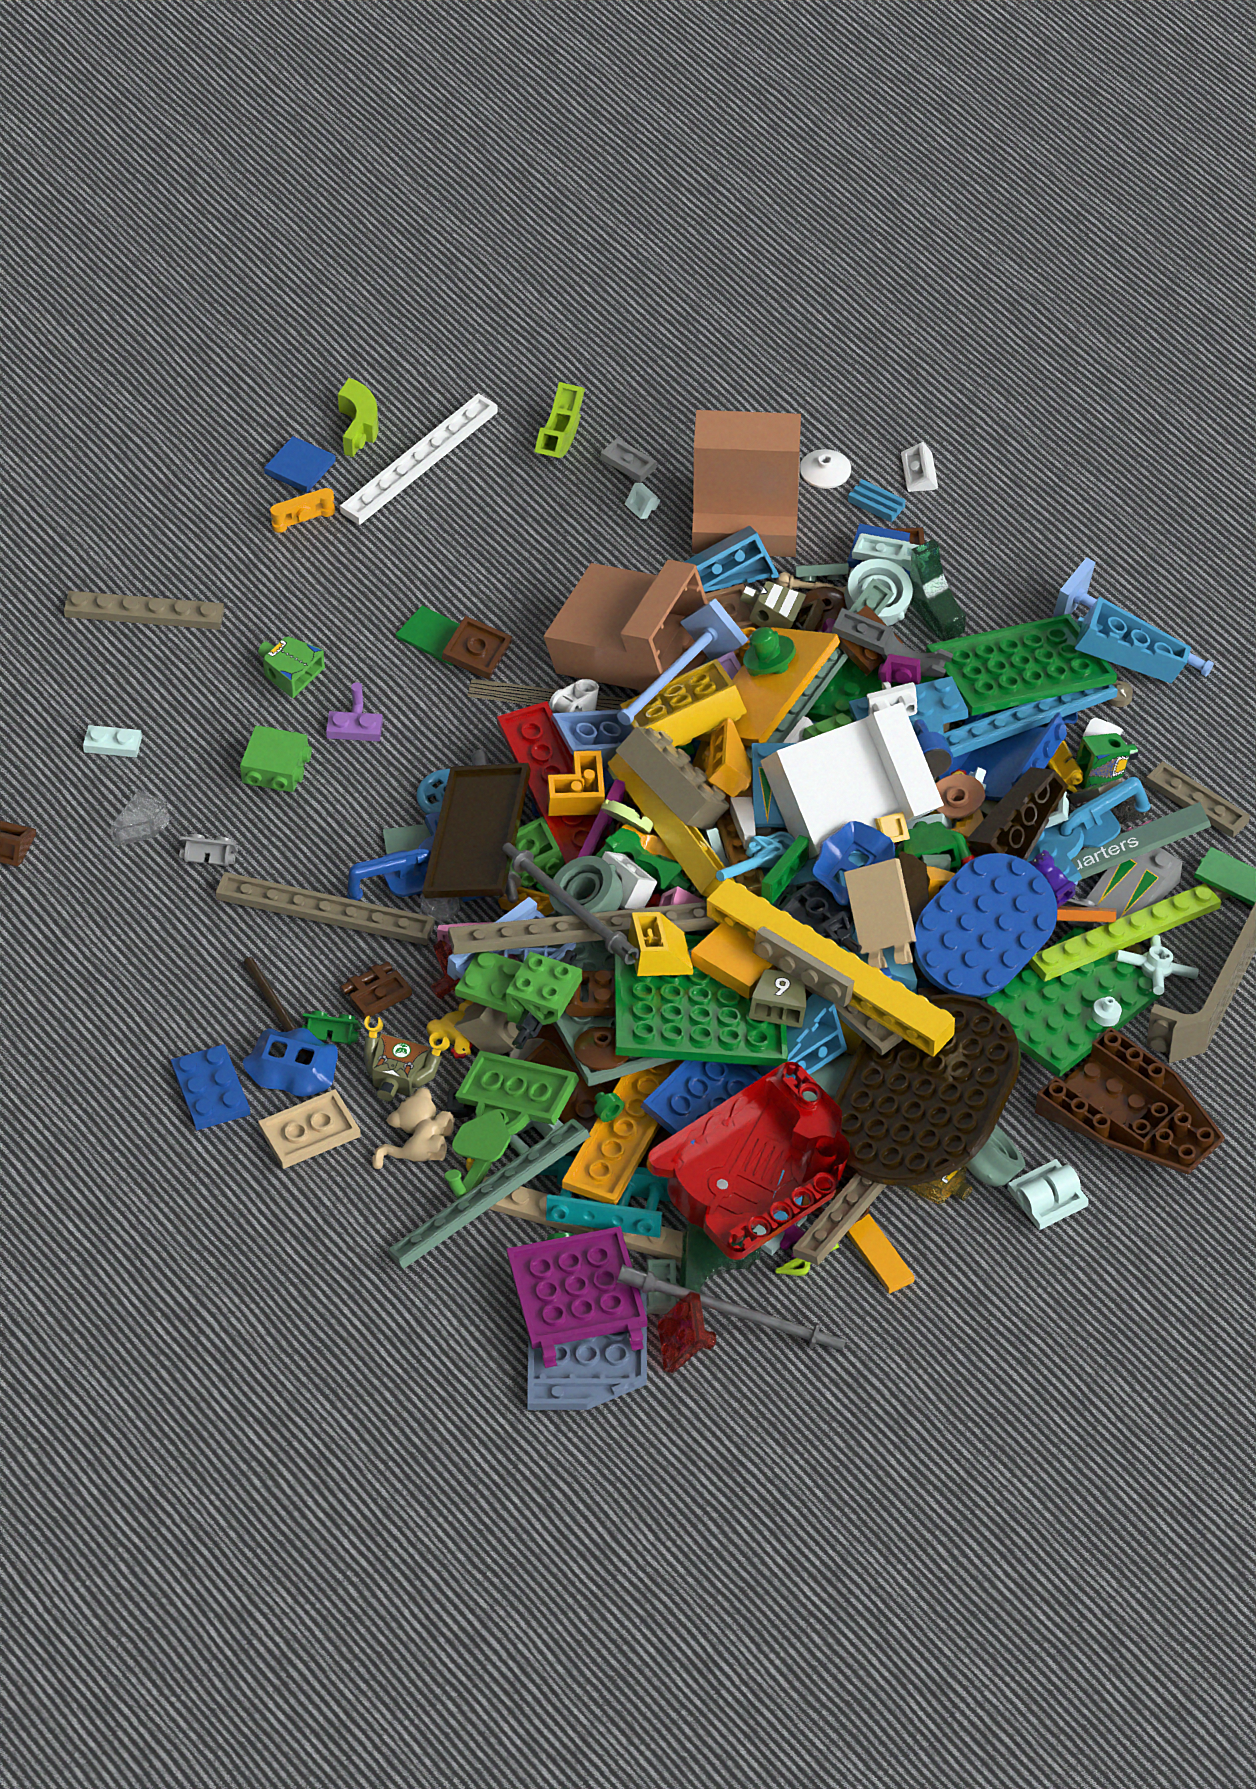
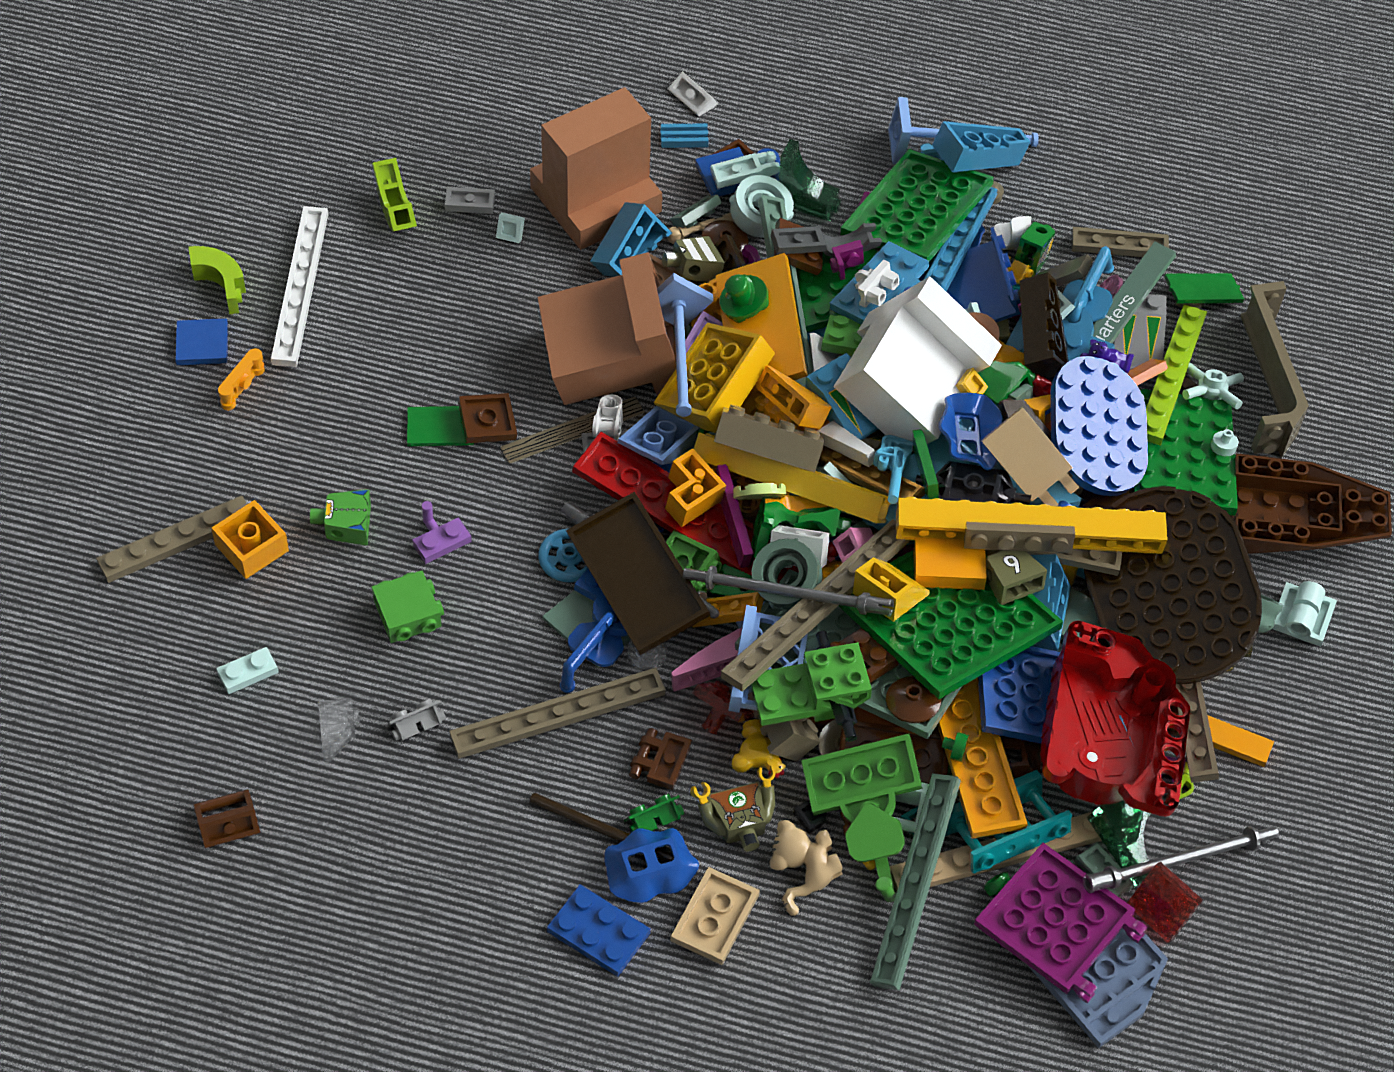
camera: 40 degrees left, 5 degrees up
(196, 639) = (250, 539): none -> light orange brick

